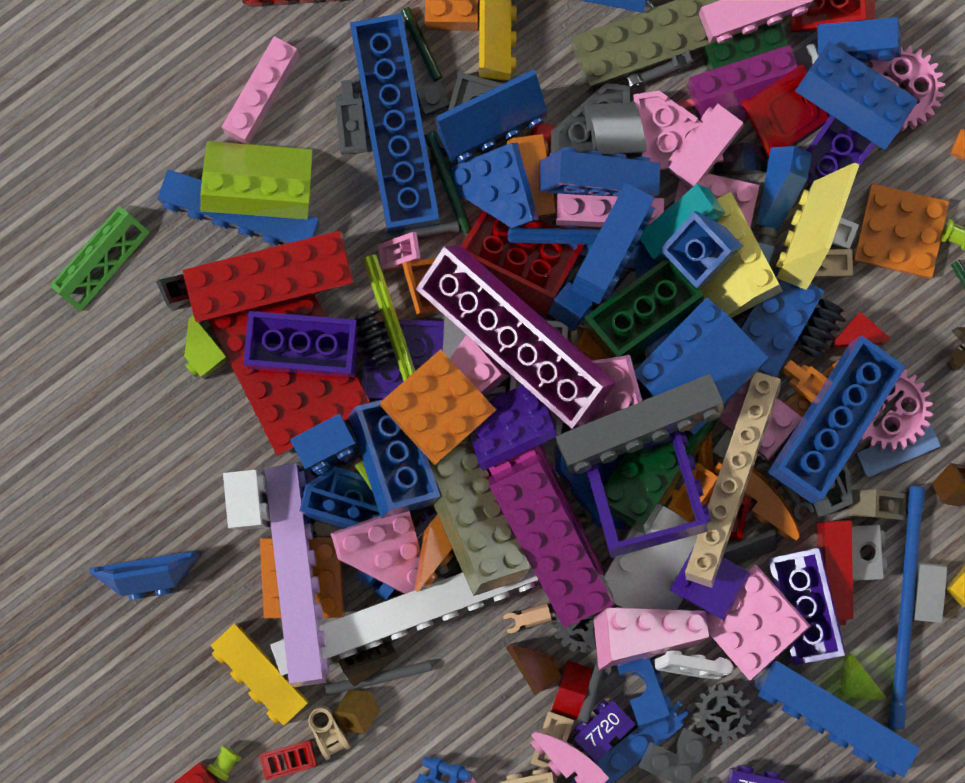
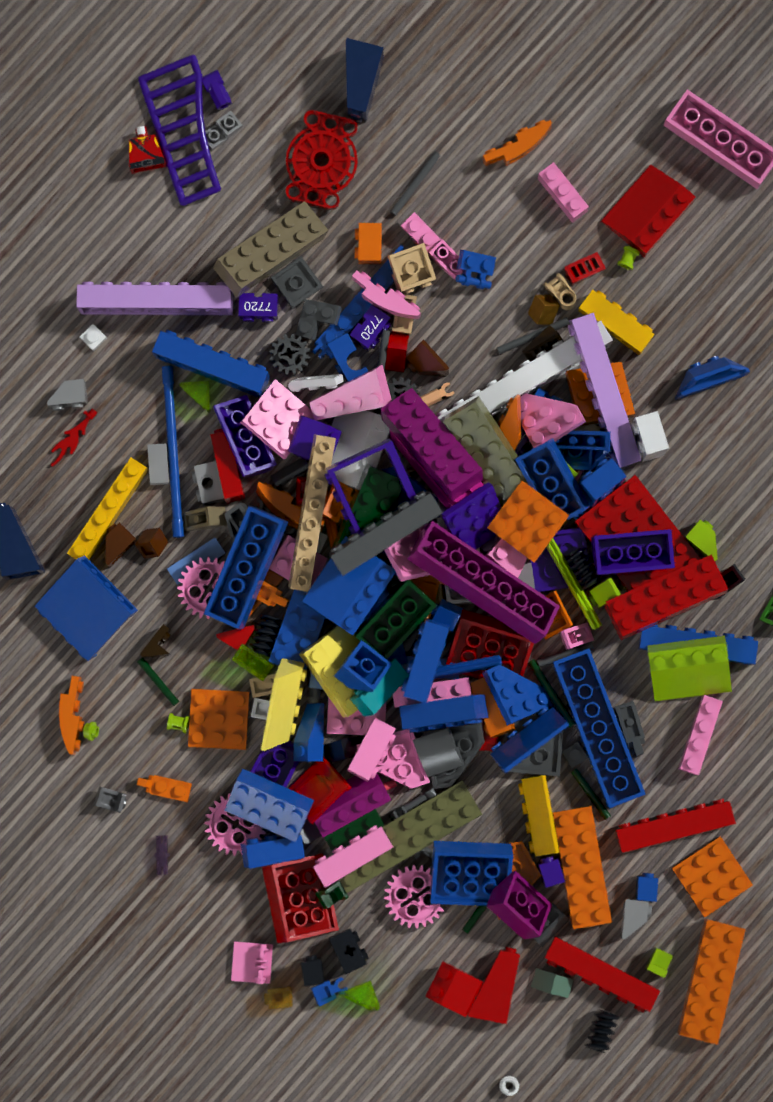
camera: 175 degrees right, 0 degrees up
(352, 300) = (603, 593): none -> lime slope
(846, 294) = (252, 662): none -> clear neon green slope

